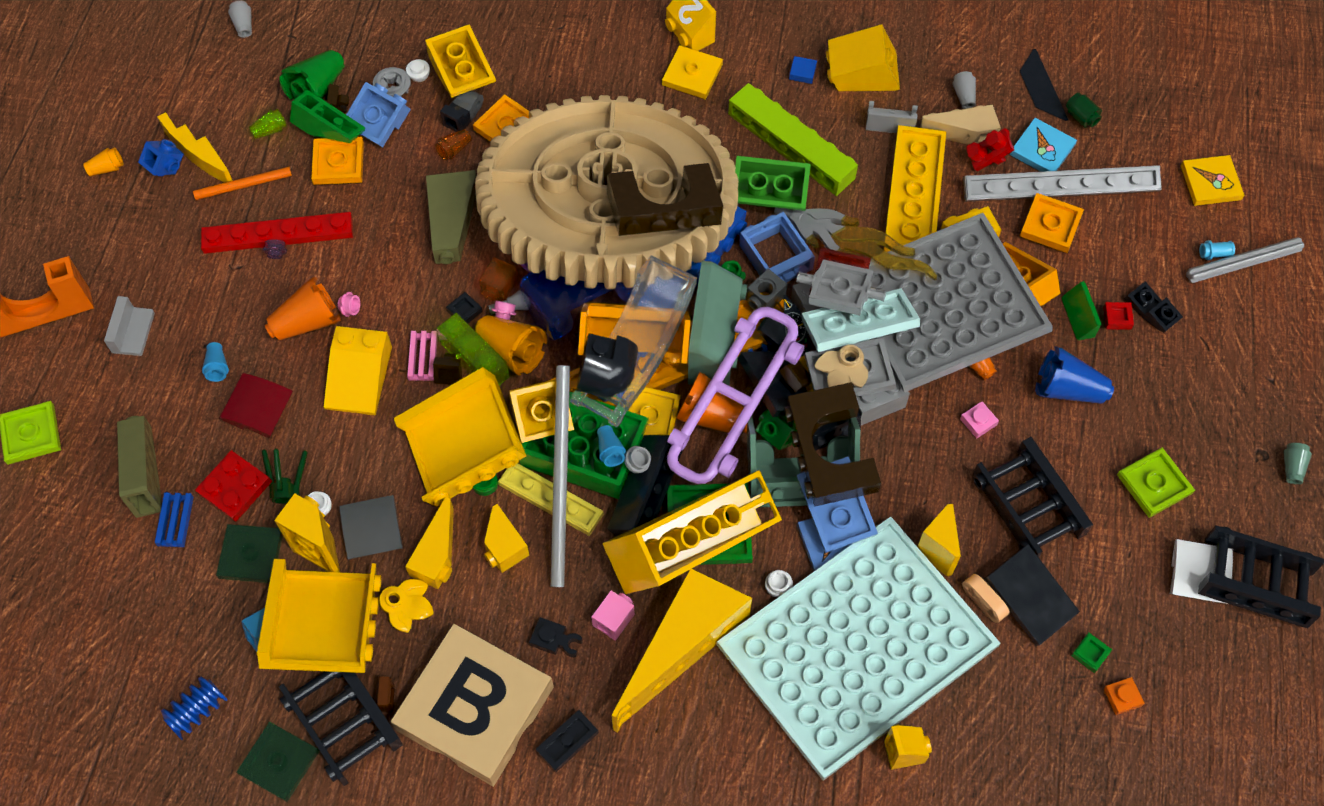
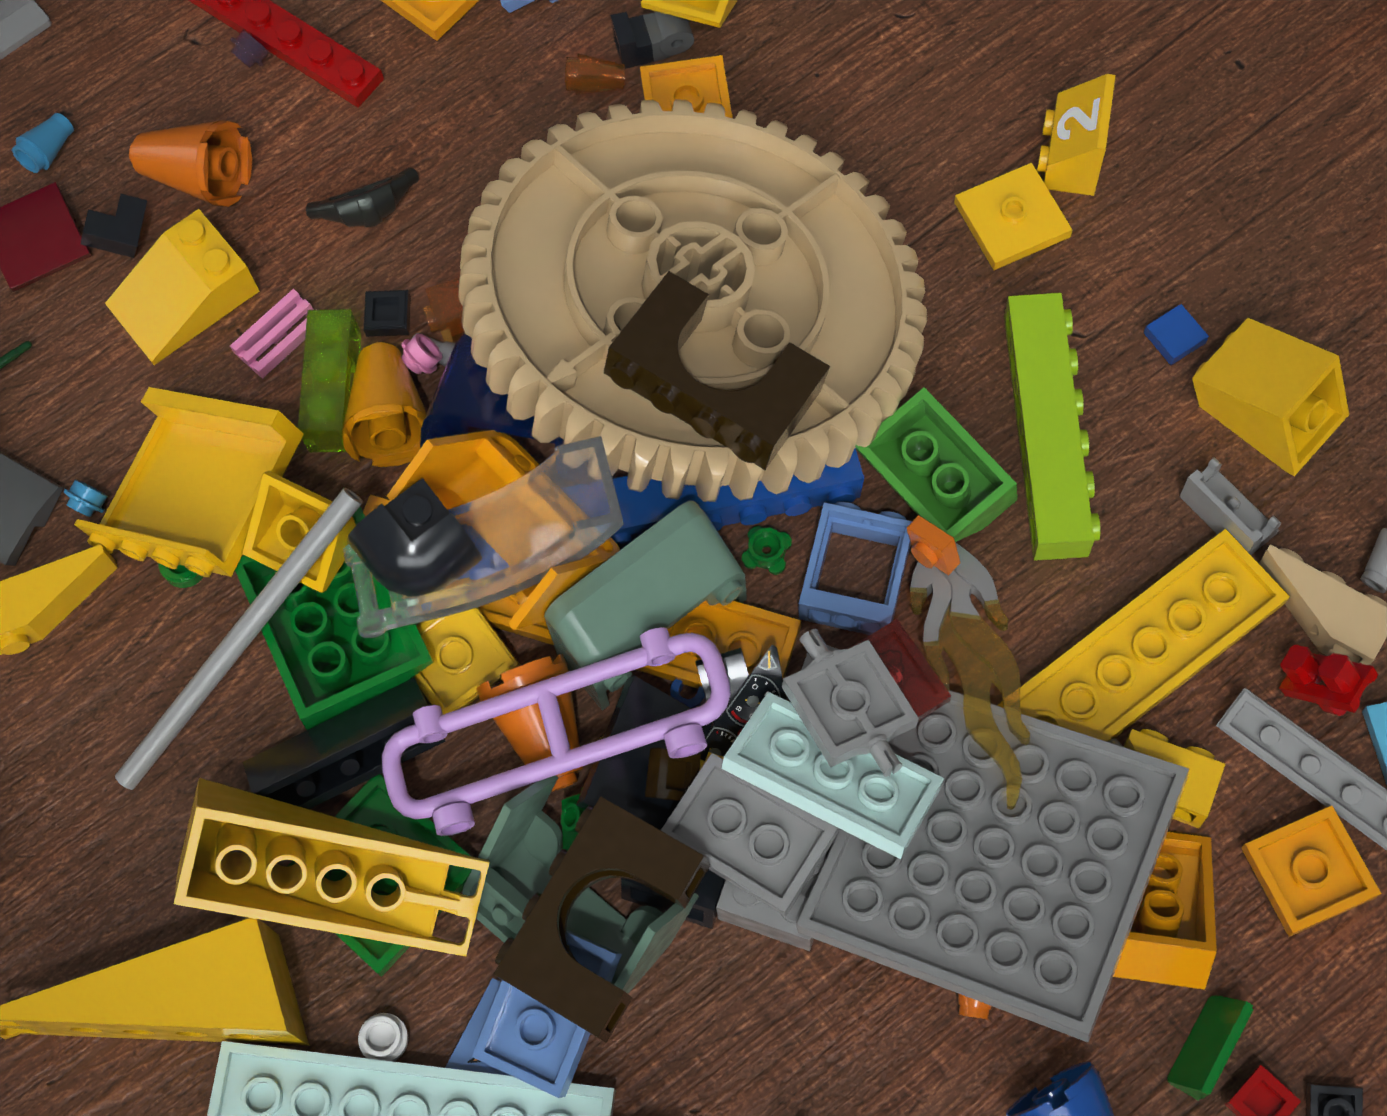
camera: 50 degrees right, 5 degrees up
(297, 369) = (118, 232): none -> black piece
(349, 304) = (259, 193): bright pink plate -> none
(406, 271) = (366, 204): none -> pearl dark grey piece
(409, 490) = (85, 498): none -> dark azure plate
(447, 369) = (280, 377): dark brown tile -> none
(450, 211) = (458, 185): olive slope -> none
(503, 542) = (118, 661): yellow slope -> none
(540, 493) = (243, 689): light yellow tile -> none
(551, 636) = (51, 841): black plate -> none
(610, 448) = (332, 658): dark azure cone -> none
(613, 614) = (140, 883): bright pink brick -> none
(637, 459) = (354, 704): light grey plate -> none
(769, 283) = (779, 602): dark grey brick -> none
(801, 213) = (932, 546): none -> orange plate
(843, 371) = (726, 826): tan plate -> none
(979, 420) = (890, 1066): bright pink plate -> none

